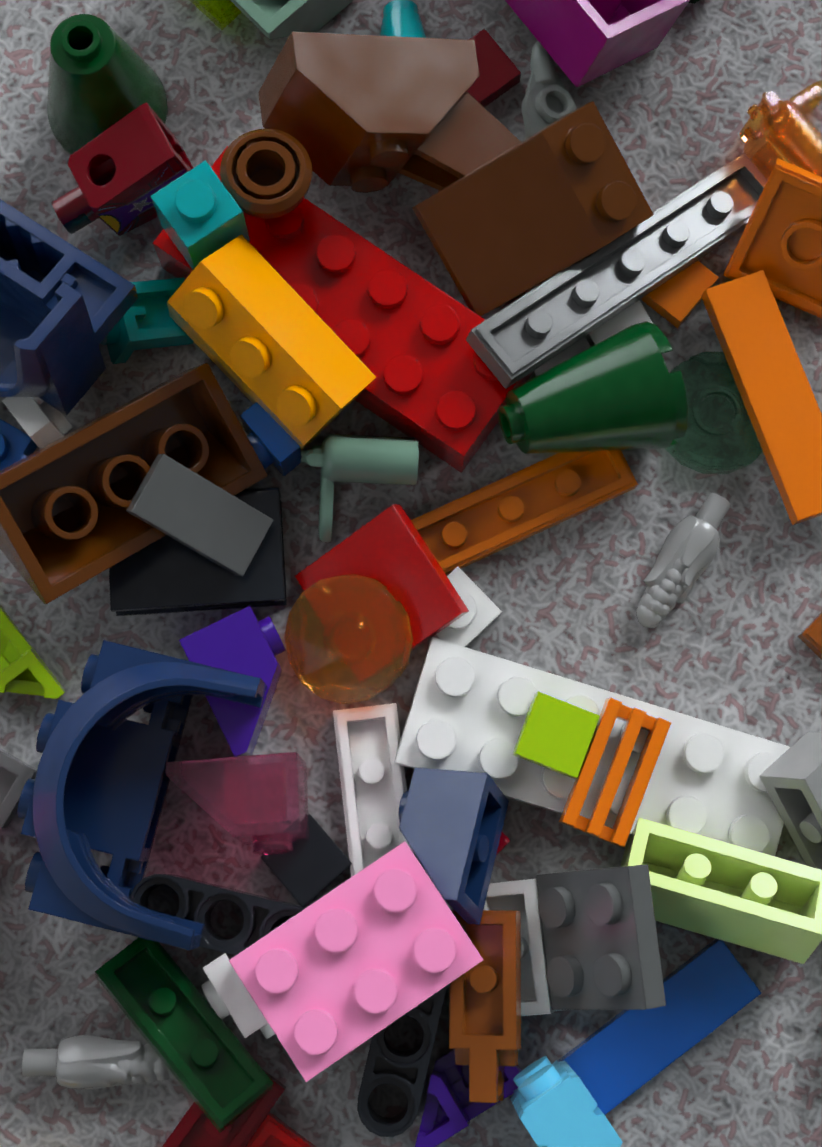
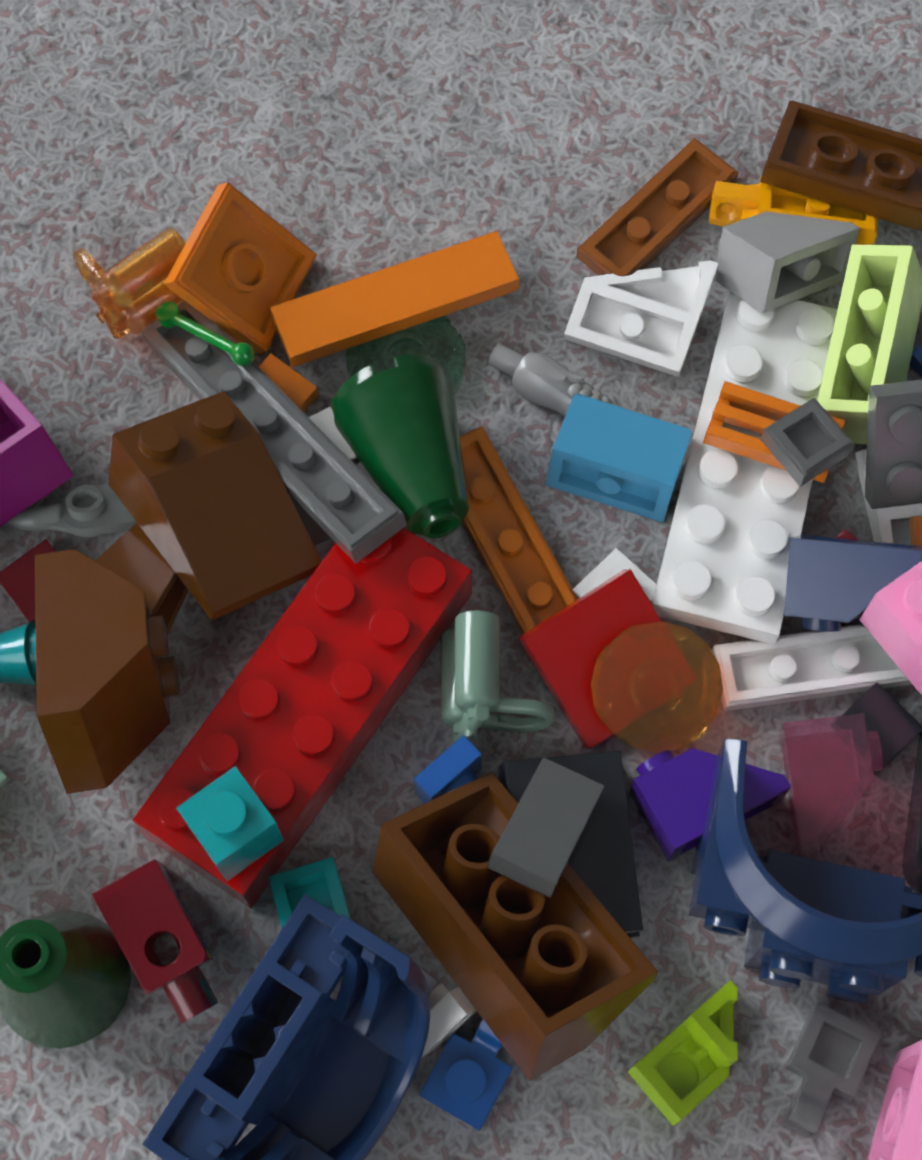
camera: 90 degrees left, 10 degrees down
(266, 172) = (183, 751): reddish brown brick -> none
(268, 340) = (361, 760): light orange slope -> none
(556, 735) = (744, 483): lime tile -> none
(594, 800) = (807, 442): none -> dark grey tile
(600, 616) = (618, 457): none -> dark azure panel
(756, 178) = (170, 316): none -> green hinge
(763, 653) = (643, 315): none -> white wing

